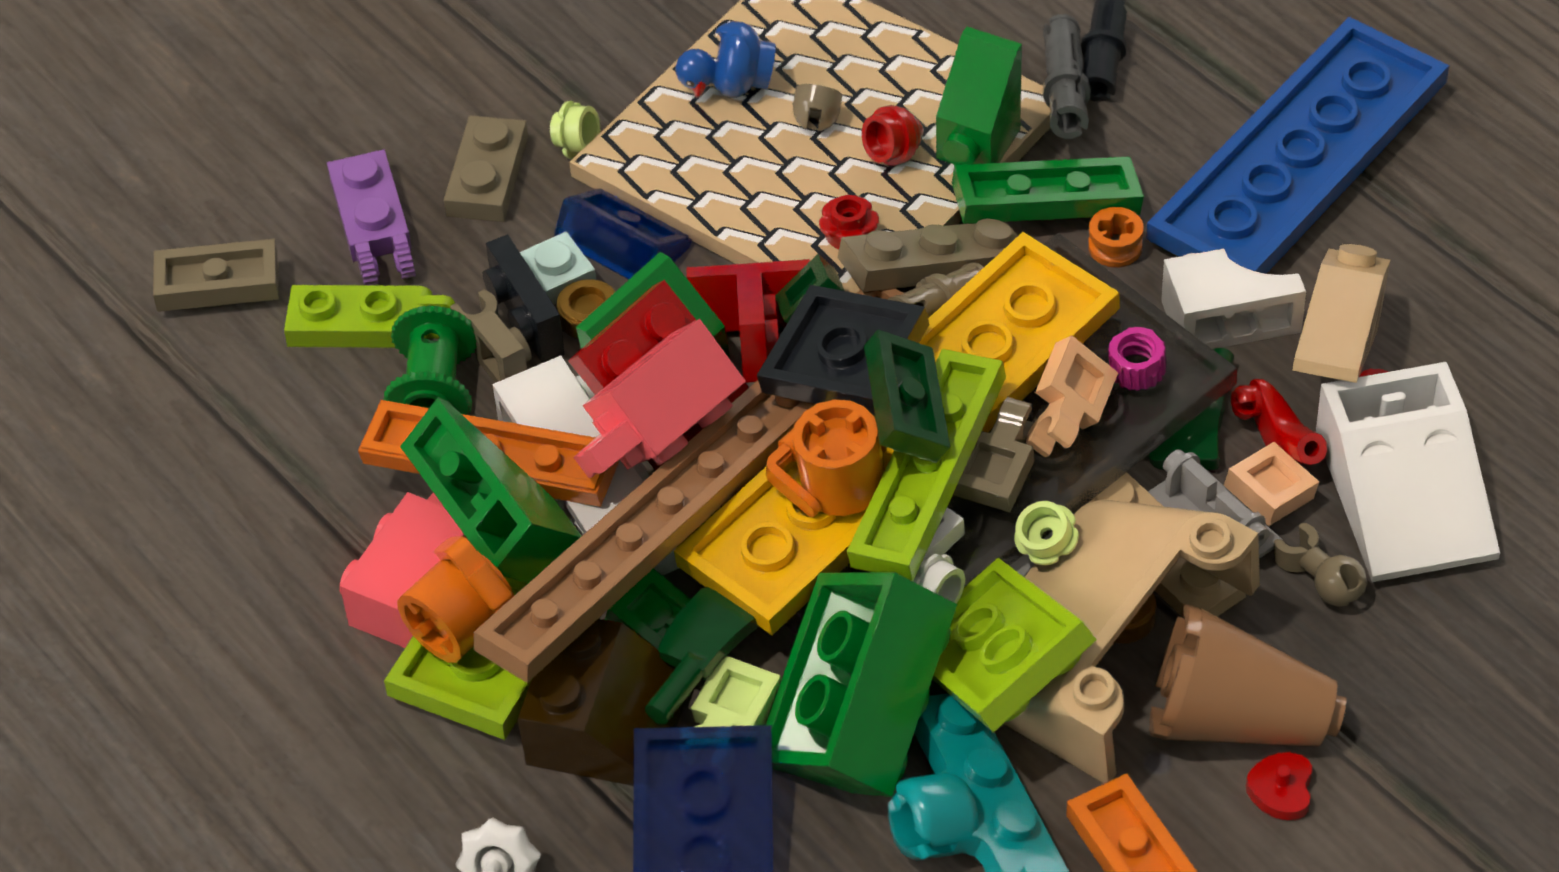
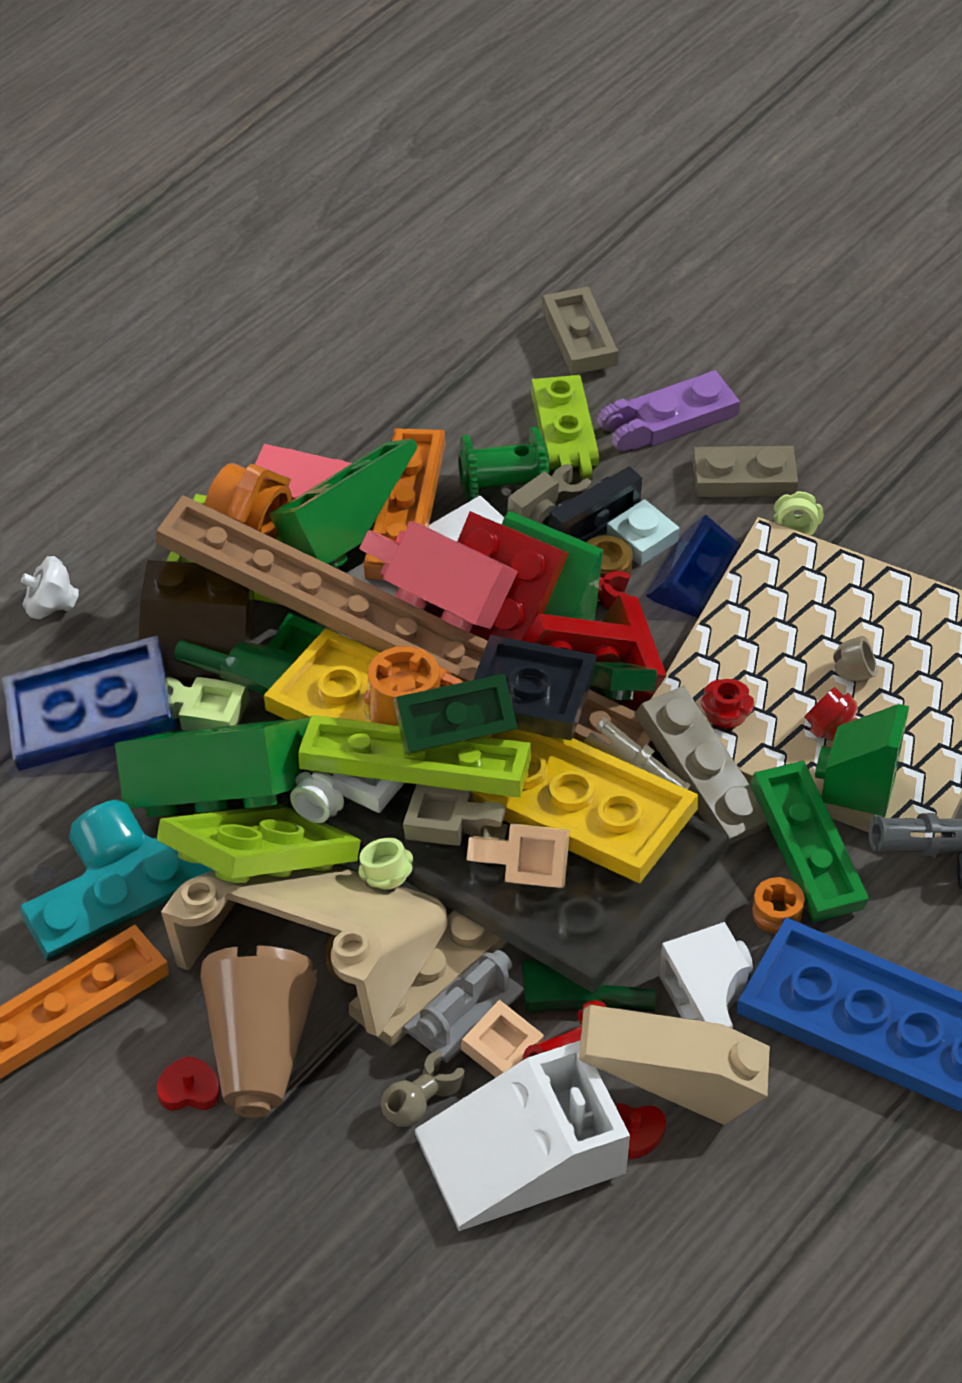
camera: 75 degrees right, 0 degrees up
(740, 63) = (884, 593): blue animal -> none
(1137, 342) = (576, 914): dark pink axle -> none

